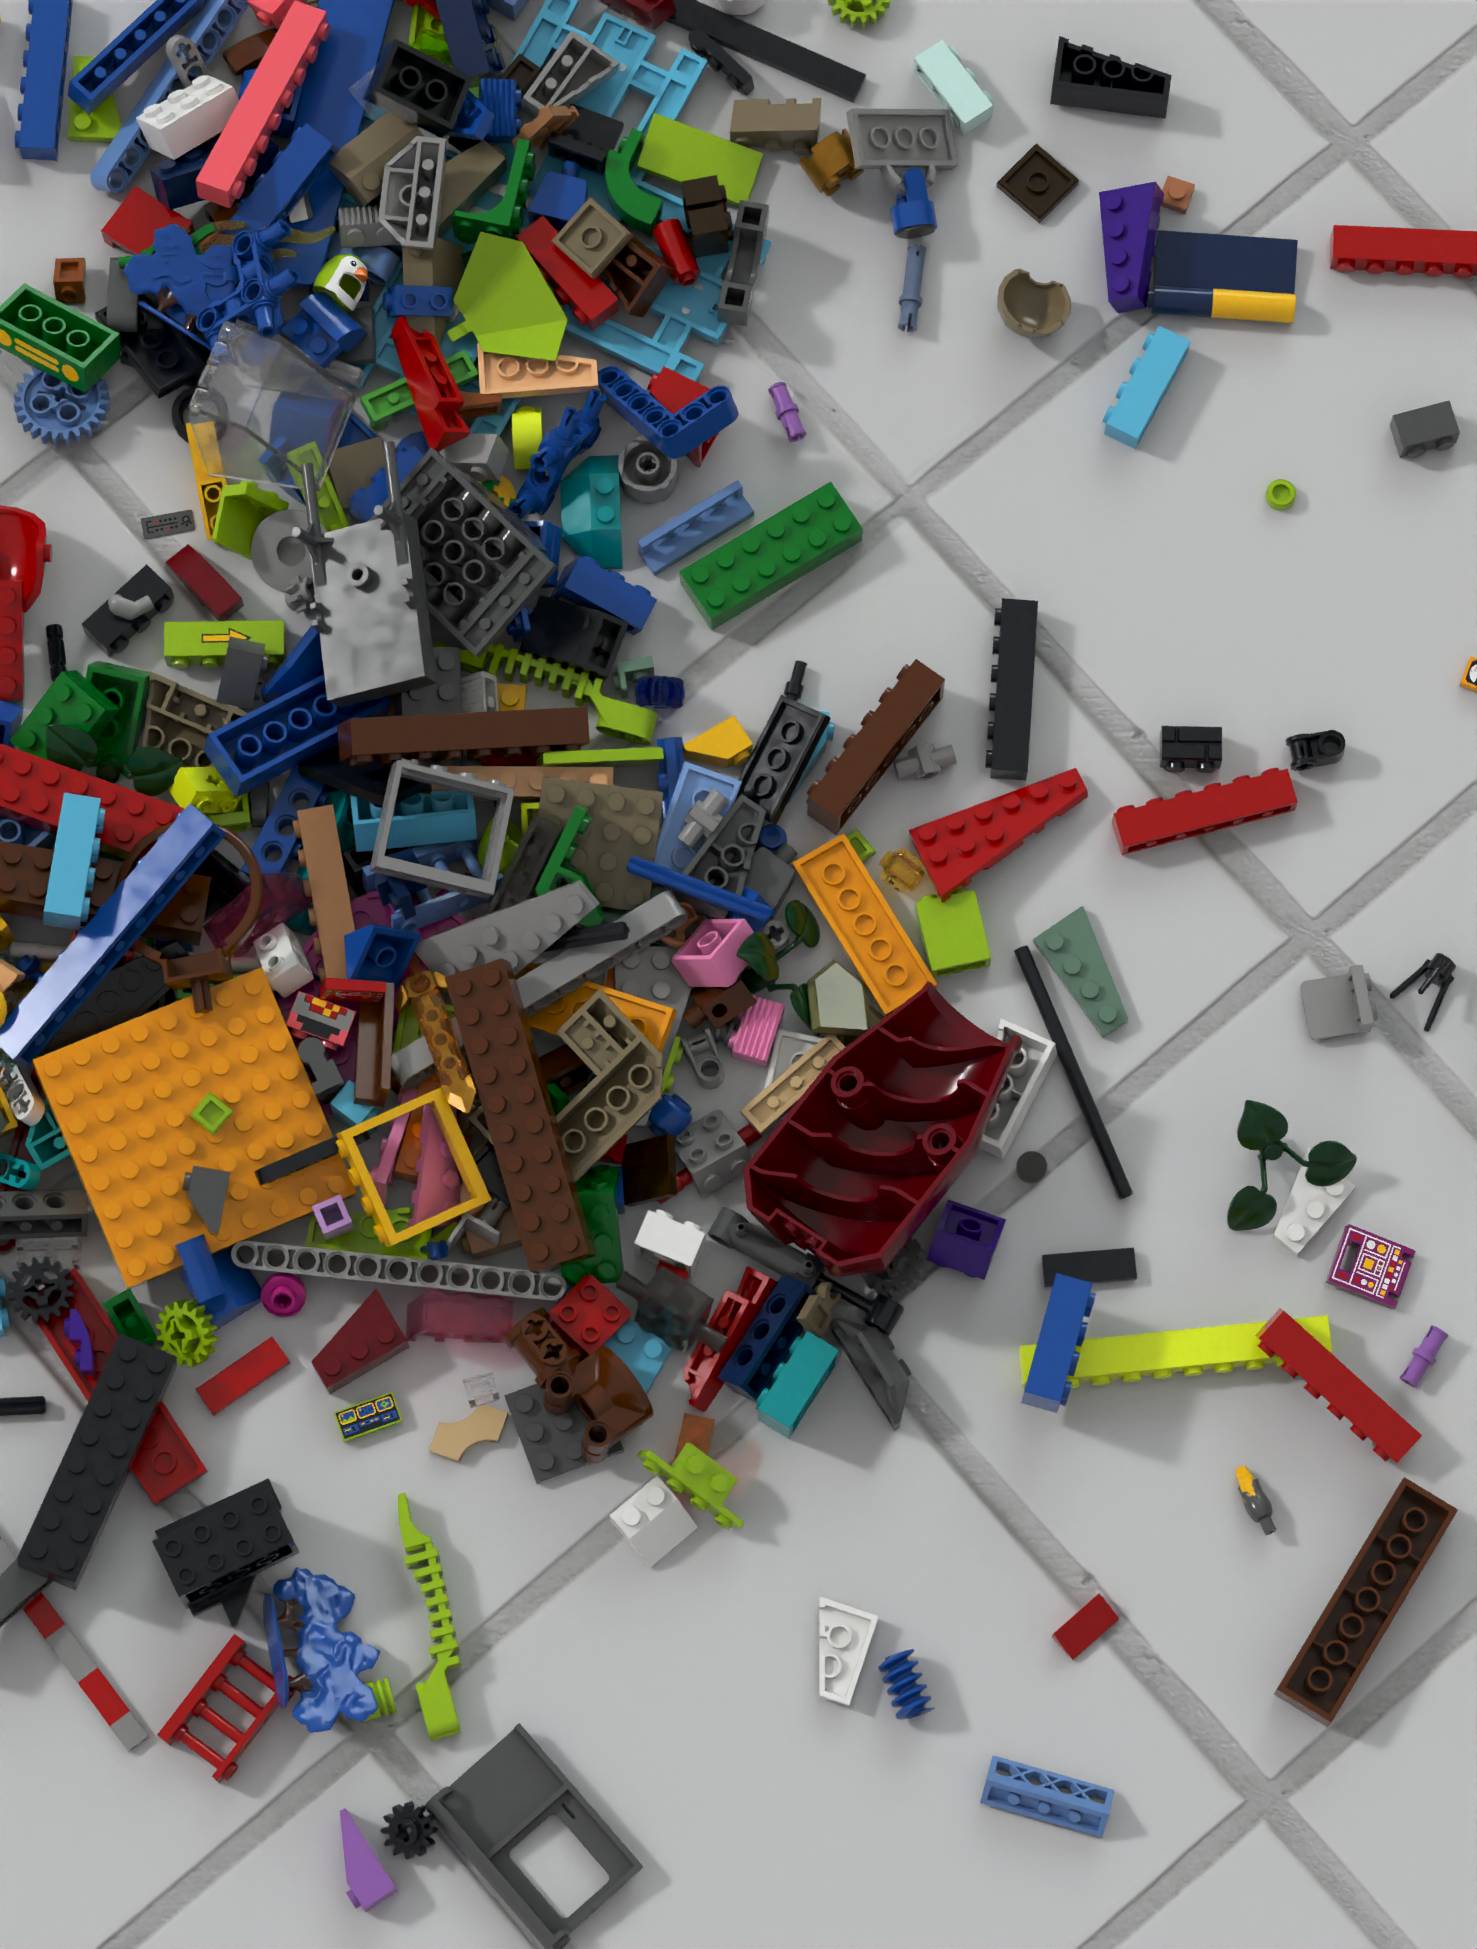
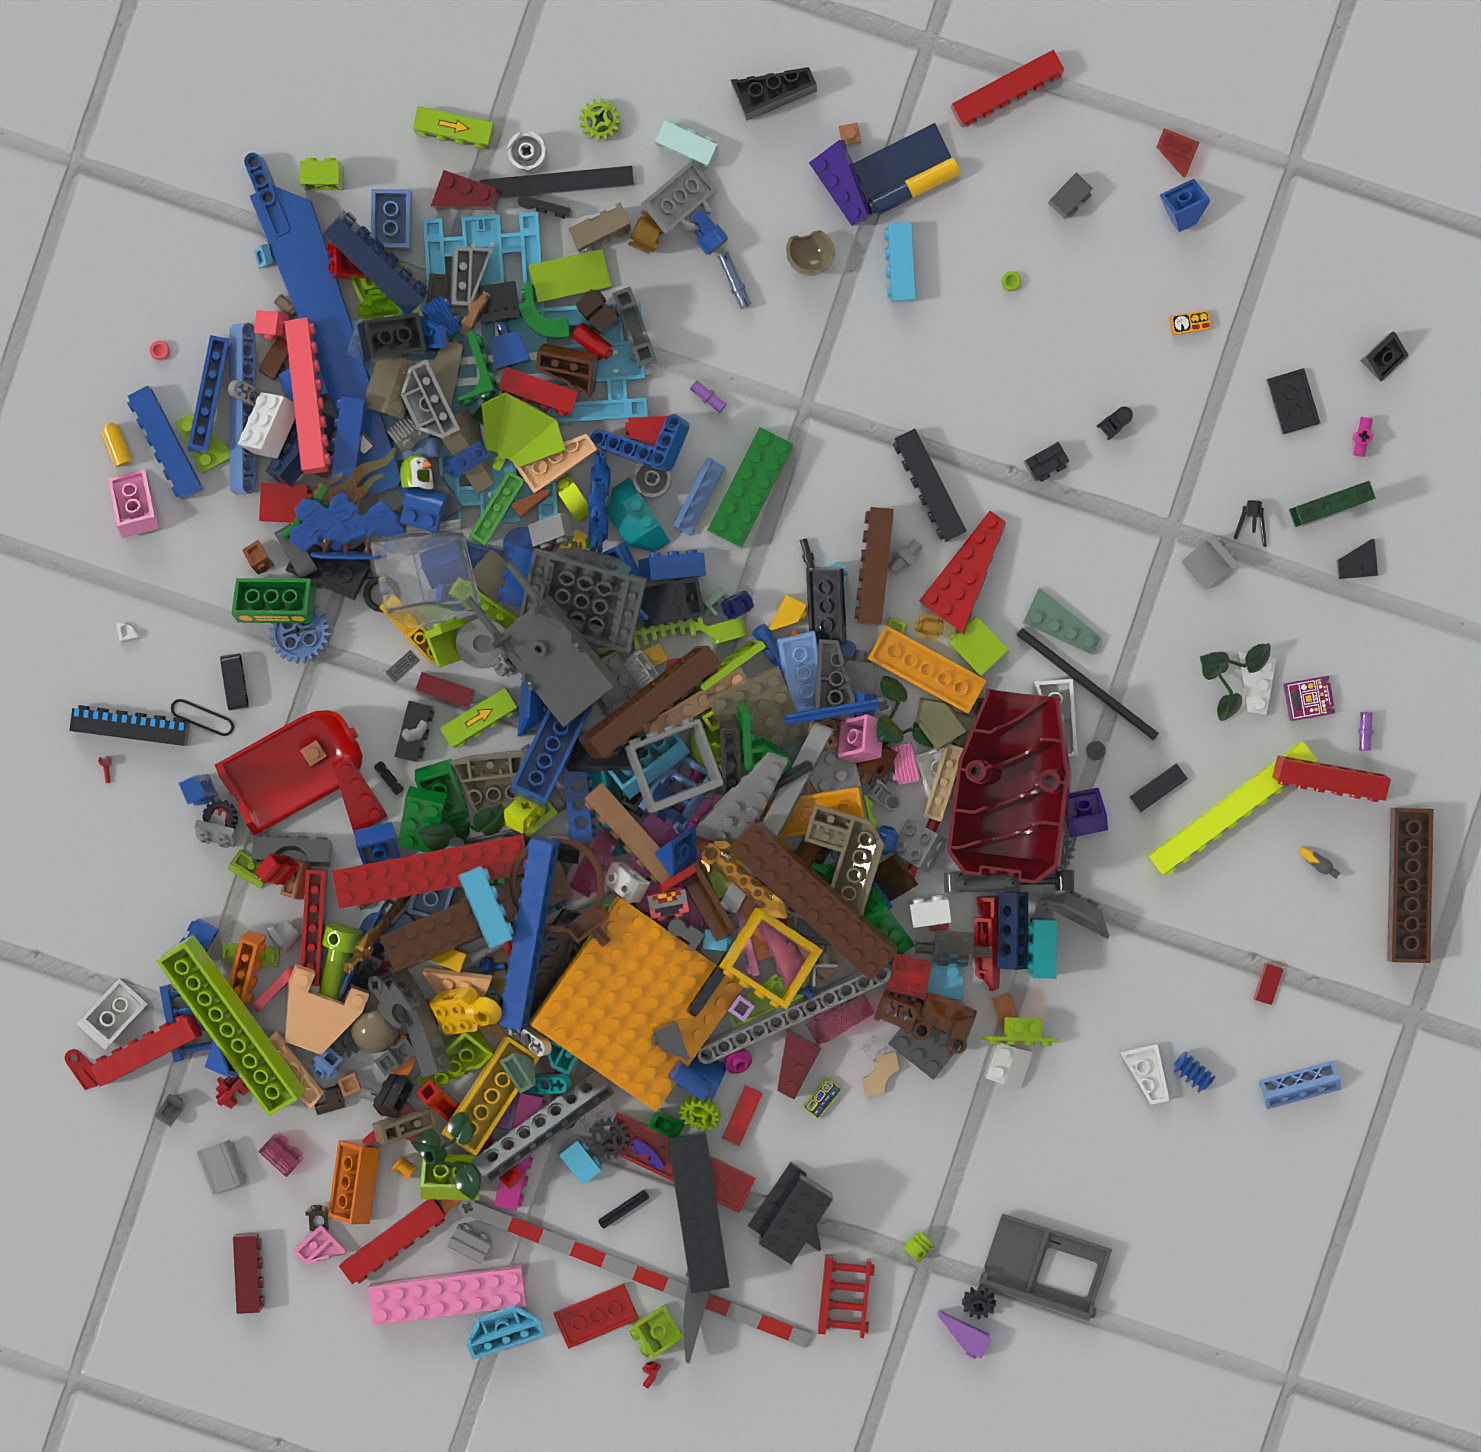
camera: 30 degrees left, 15 degrees up
(211, 1113) = (644, 994): lime tile -> none
(241, 672) = (500, 732): dark grey brick -> none
(258, 288) = (377, 513): blue pin -> none
(324, 1654) = (881, 1240): blue plant -> none
(430, 385) = (504, 505): red wedge -> none
(435, 1692) = (948, 1223): lime piece -> none
(592, 238) = (543, 366): dark tan tile -> none
(702, 818) = (807, 667): light grey axle -> none
(816, 1312) = (1031, 904): dark tan plate -> none
(1037, 183) = (767, 173): dark brown tile -> none
(1056, 1344) = (1171, 847): blue brick -> none
(1204, 811) = (1075, 494): red brick -> none

